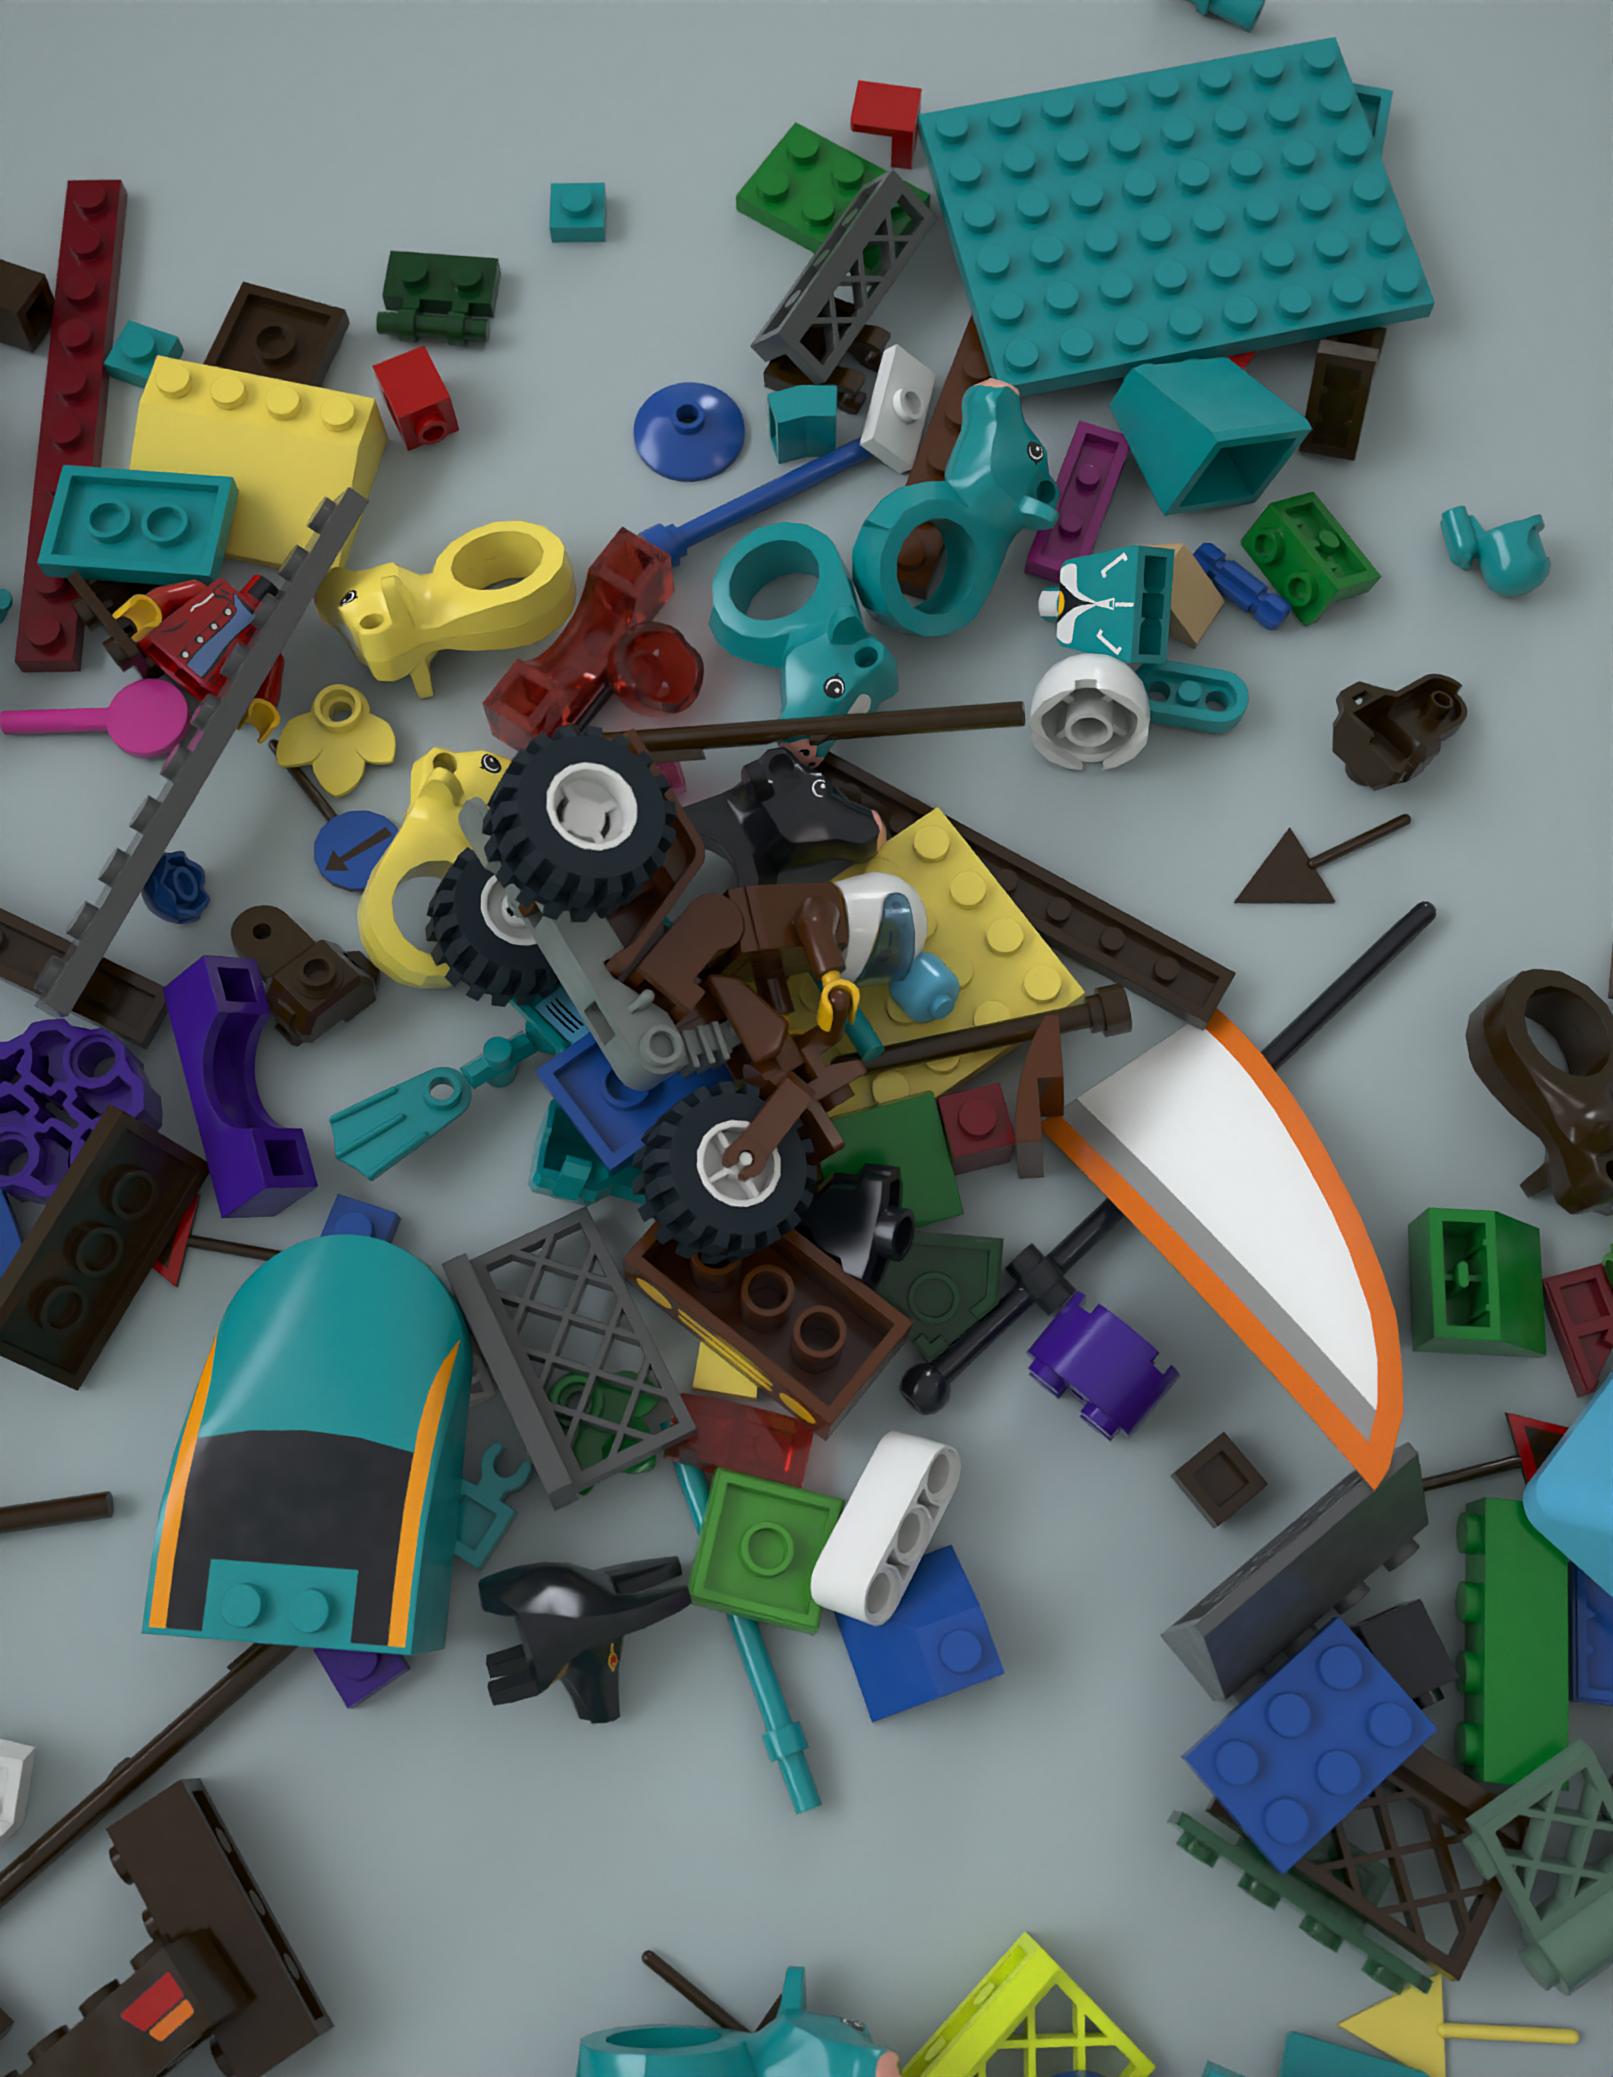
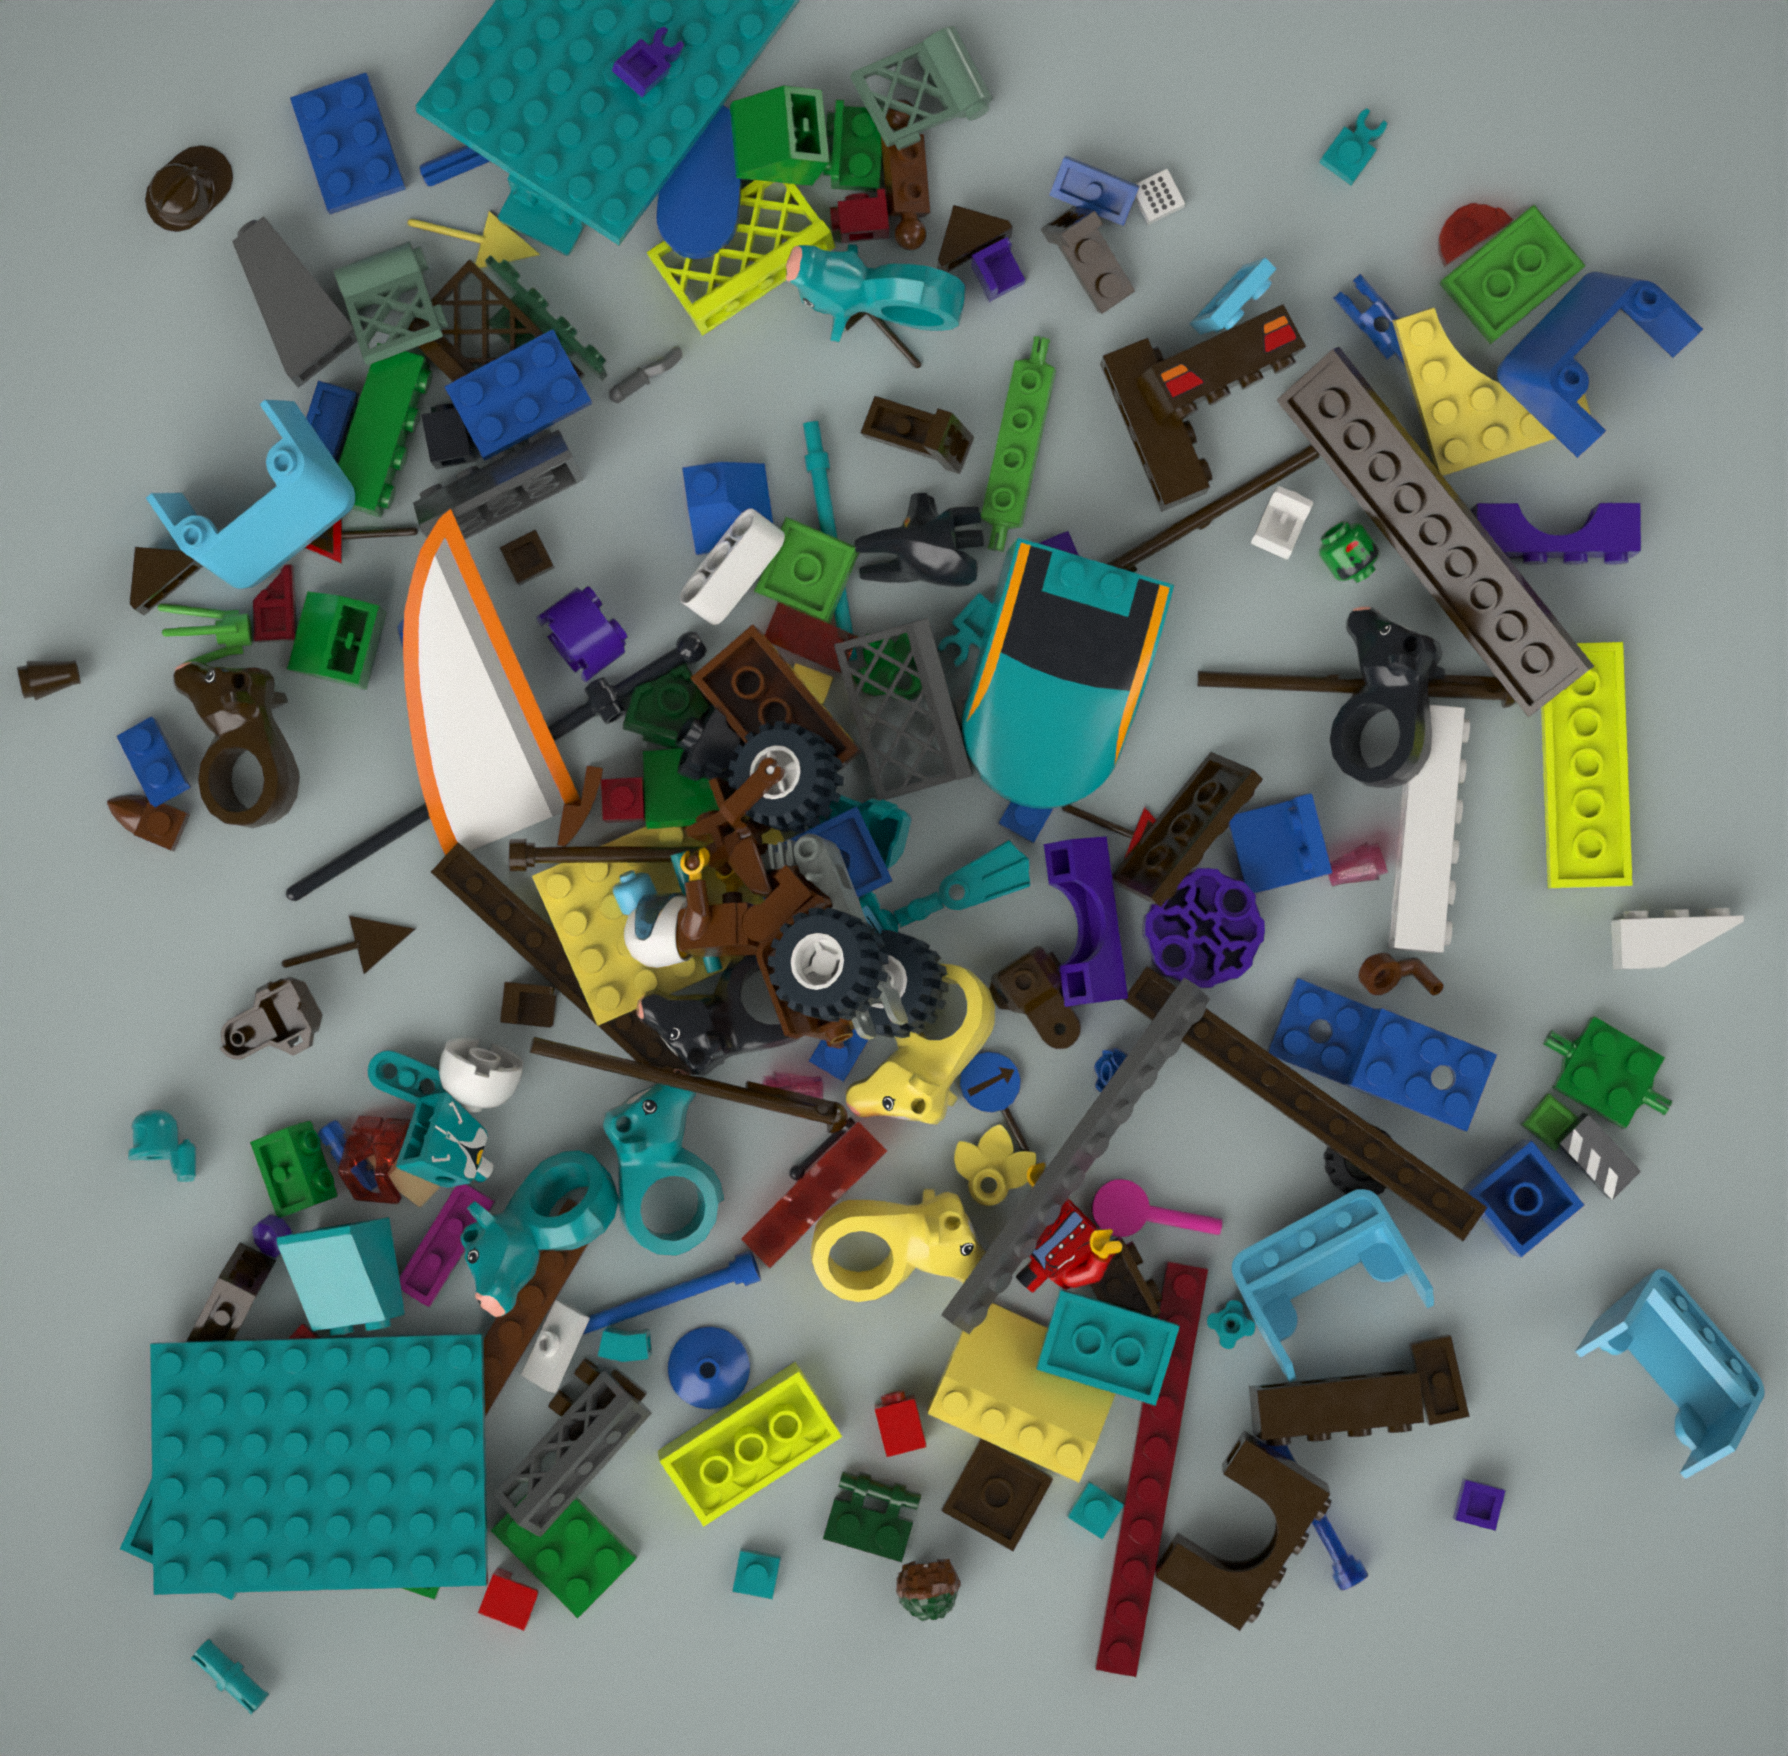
camera: 170 degrees left, 15 degrees up
(346, 212) = (928, 1588): none -> reddish brown piece
(452, 1852) = (1018, 443): none -> bright green plate
(616, 349) = (749, 1444): none -> neon yellow slope
(625, 1827) = (920, 432): none -> dark brown bracket
(639, 674) = (779, 1170): clear red helmet -> none
(1047, 827) = (528, 1004): none -> dark brown panel
(1110, 1831) = (640, 377): none -> dark grey piece
(1206, 605) = (383, 1141): none -> clear red piece
(1314, 469) = (266, 1232): none -> dark purple tile

